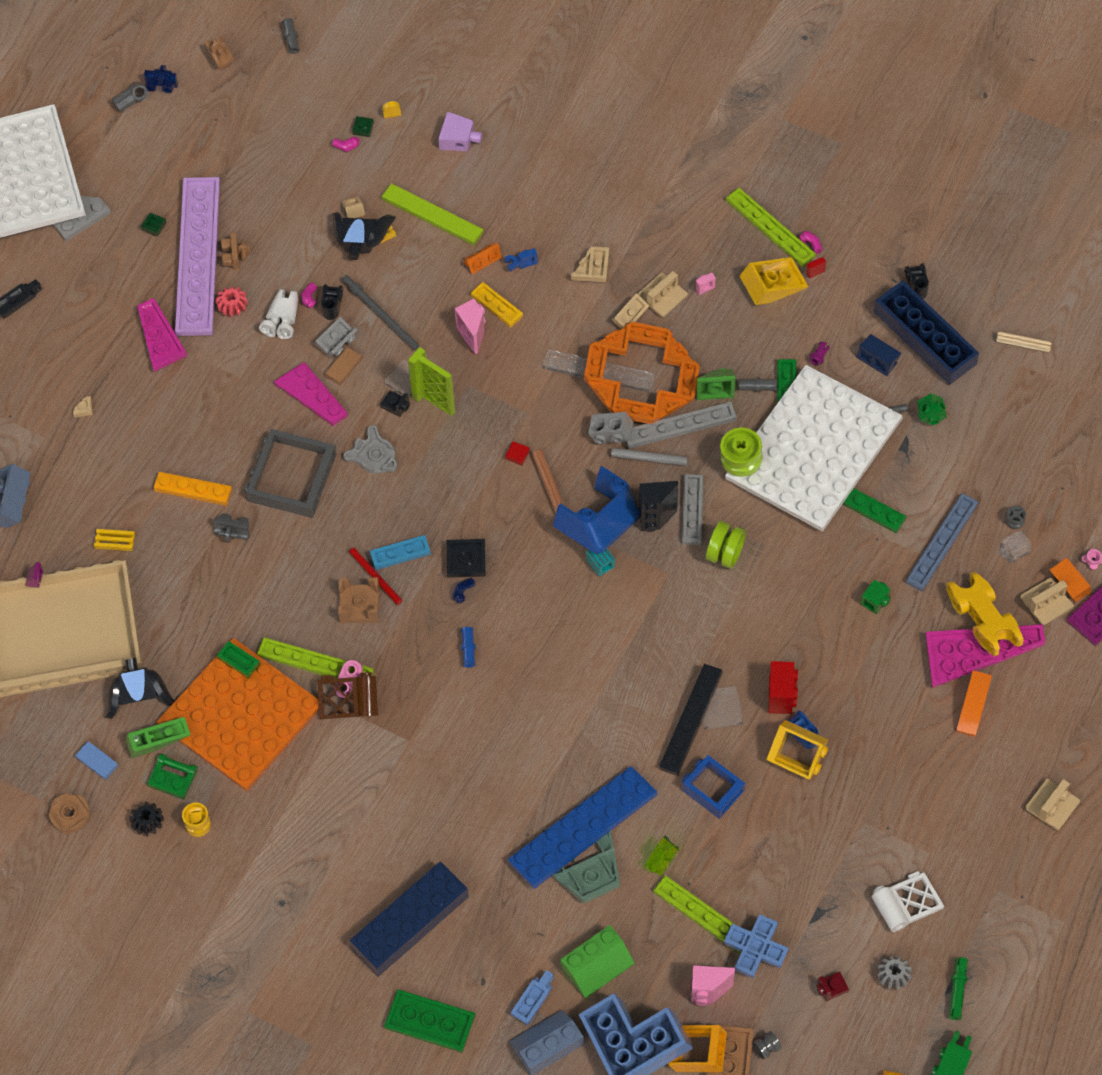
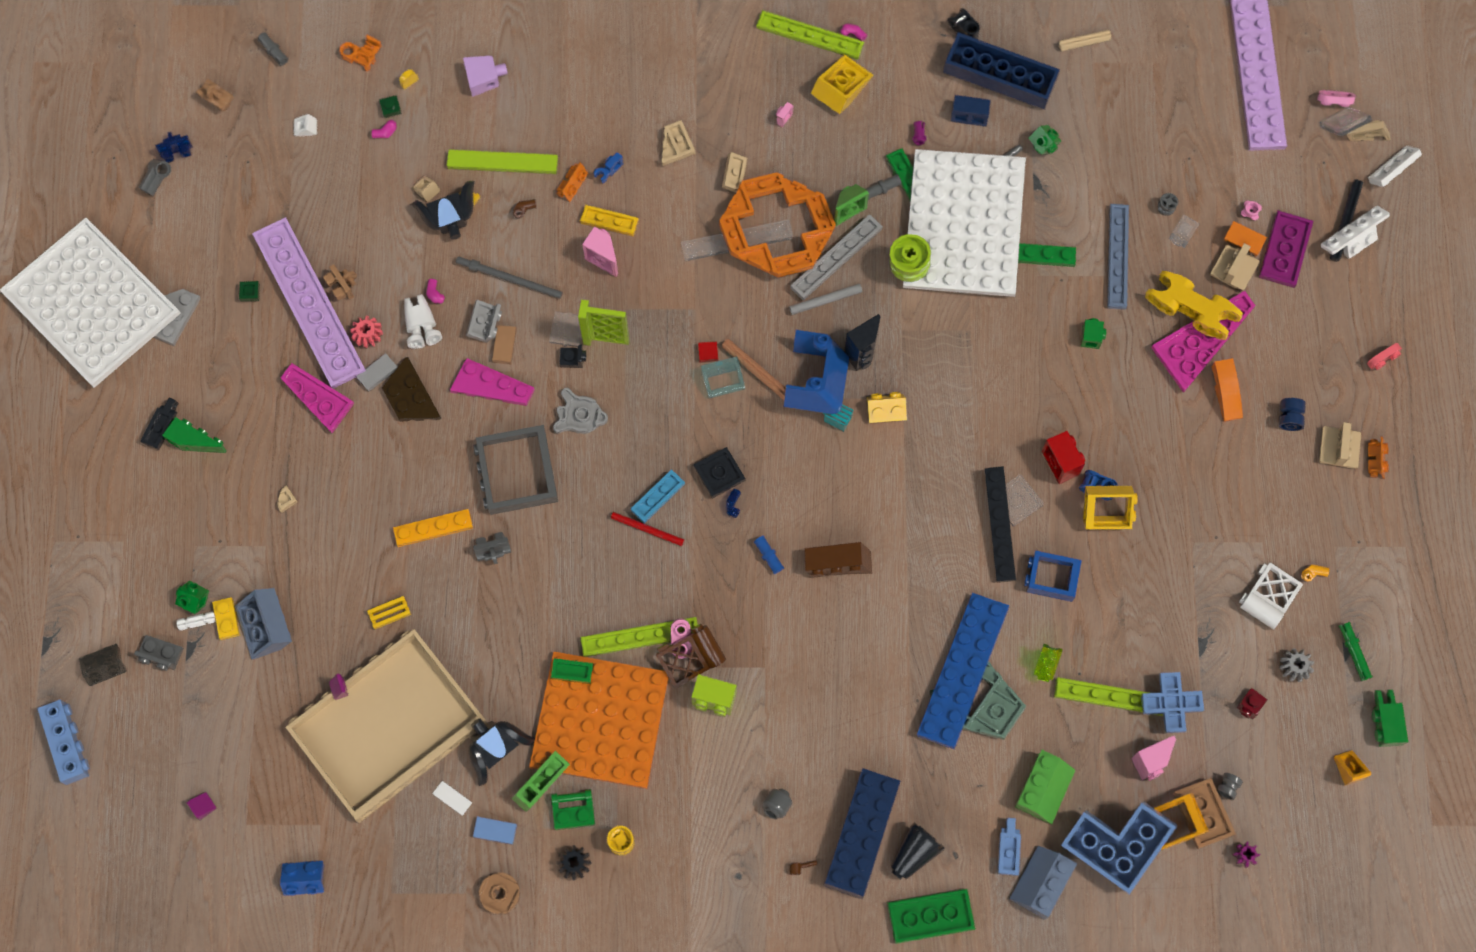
camera: 30 degrees left, 10 degrees up
(32, 320) = (186, 438): none -> green slope
(77, 717) = (452, 798): none -> white sticker
(221, 339) = (377, 372): none -> light grey tile
(237, 370) = (409, 395): none -> dark brown wing
(281, 111) = (305, 126): none -> white slope
(331, 301) = (457, 285): black piece -> none
(335, 919) = (795, 868): none -> reddish brown hand
(347, 738) = (714, 695): none -> lime brick
(349, 857) = (777, 803): none -> dark grey head
(359, 602) = (647, 561): medium nougat panel -> none
(367, 74) = (366, 55): none -> orange piece
(427, 259) = (522, 206): none -> reddish brown arm
(446, 957) = (915, 852): none -> black cone
(517, 470) = (719, 368): none -> clear light blue tile
(527, 679) = (838, 560): none -> reddish brown wedge
(610, 427) = (779, 285): light grey brick -> none
(648, 573) = (886, 408): none -> yellow bracket
(663, 293) = (752, 141): tan bracket -> none
(692, 509) = (891, 330): light grey tile -> none
(725, 544) = (942, 349): lime wheel -> none
(816, 267) = (872, 54): red tile -> none
(961, 899) = (1314, 570): none -> light orange arm
(1024, 750) = (1292, 414): none -> dark blue wheel
(1088, 823) = (1378, 465): none -> orange hinge

